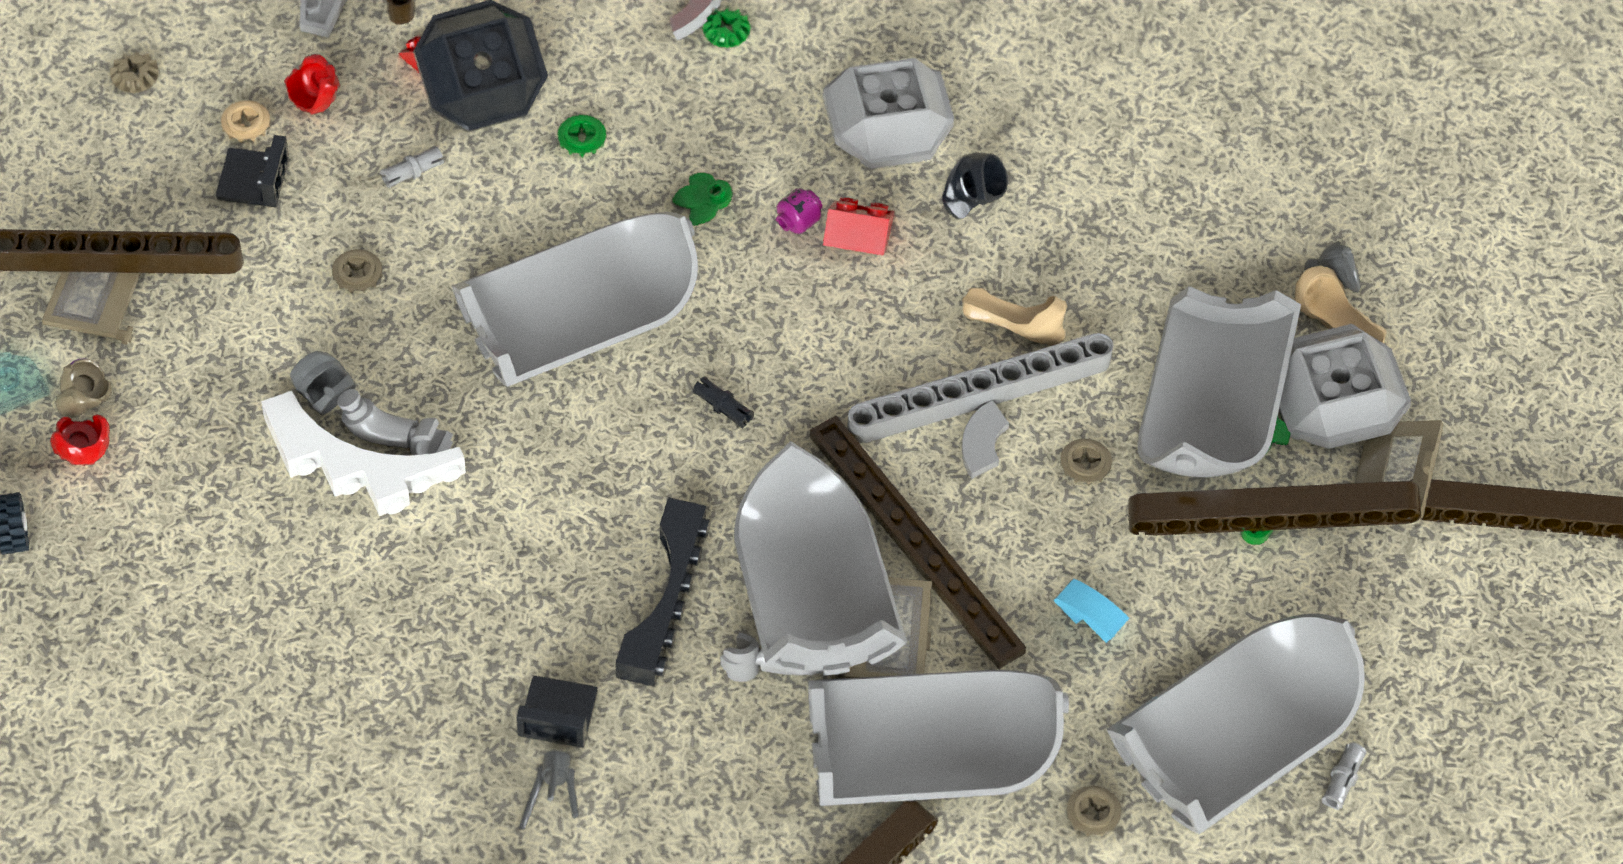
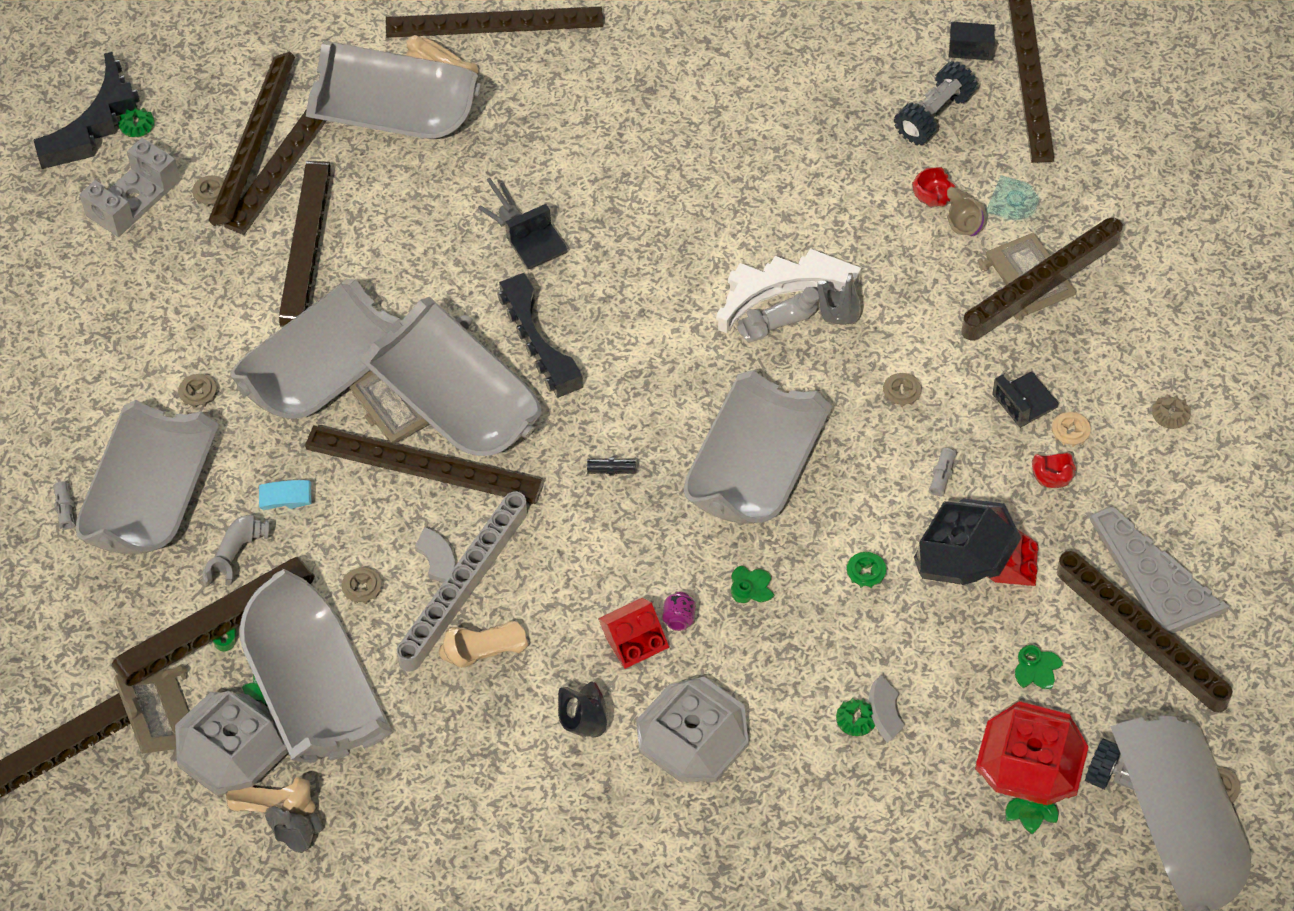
camera: 145 degrees right, 0 degrees up
(1177, 594) = (238, 533): none -> light grey piece

